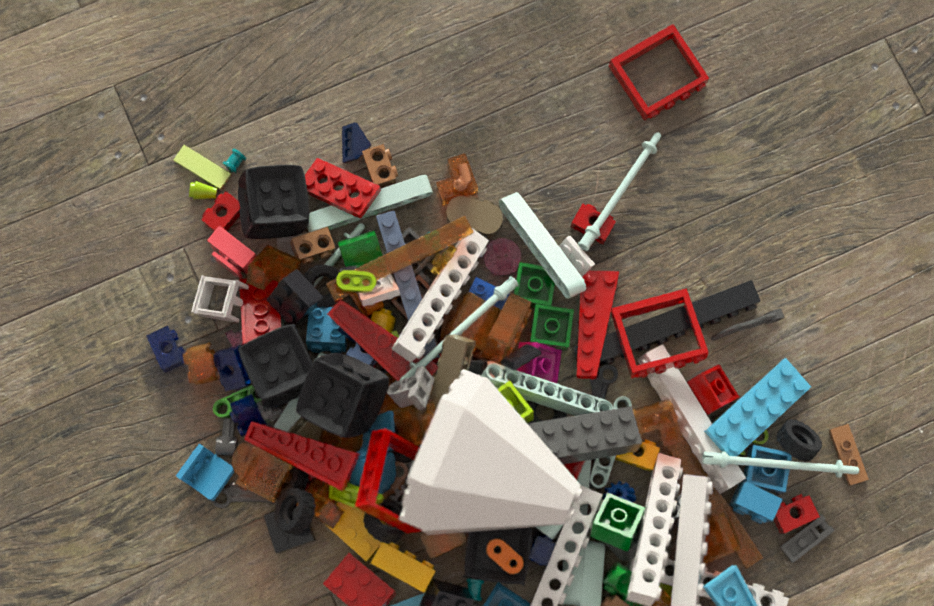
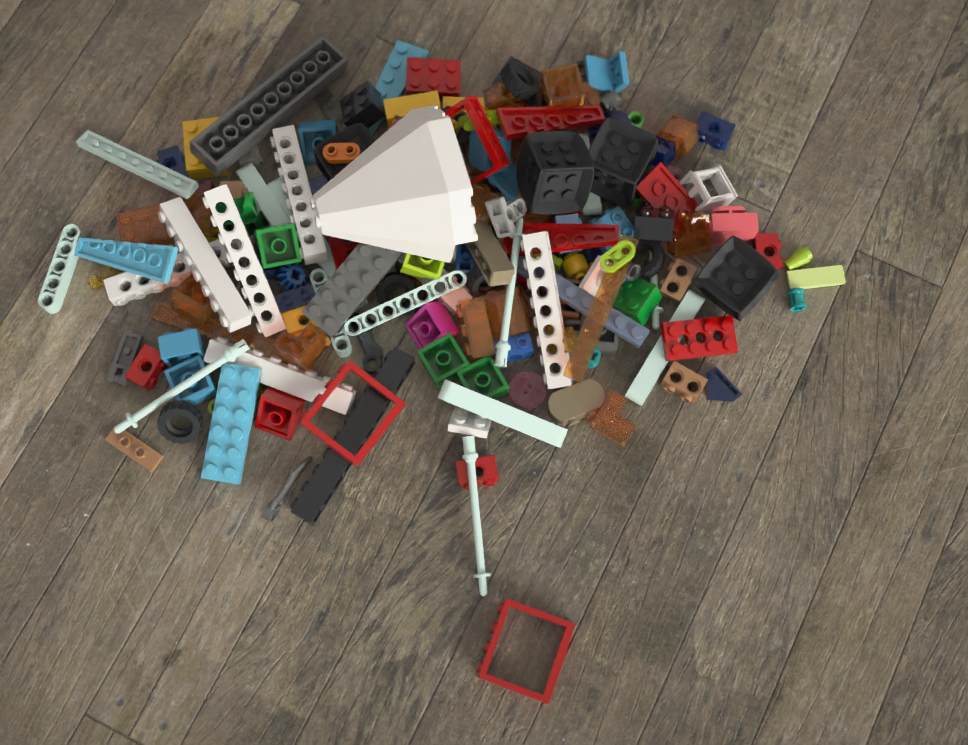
camera: 145 degrees right, 5 degrees down
(464, 179) = (607, 415): nougat arm -> none
(520, 357) = (446, 308): black tile -> none
(594, 317) = (422, 404): red wing -> none
(631, 473) = (295, 298): none -> clear blue brick

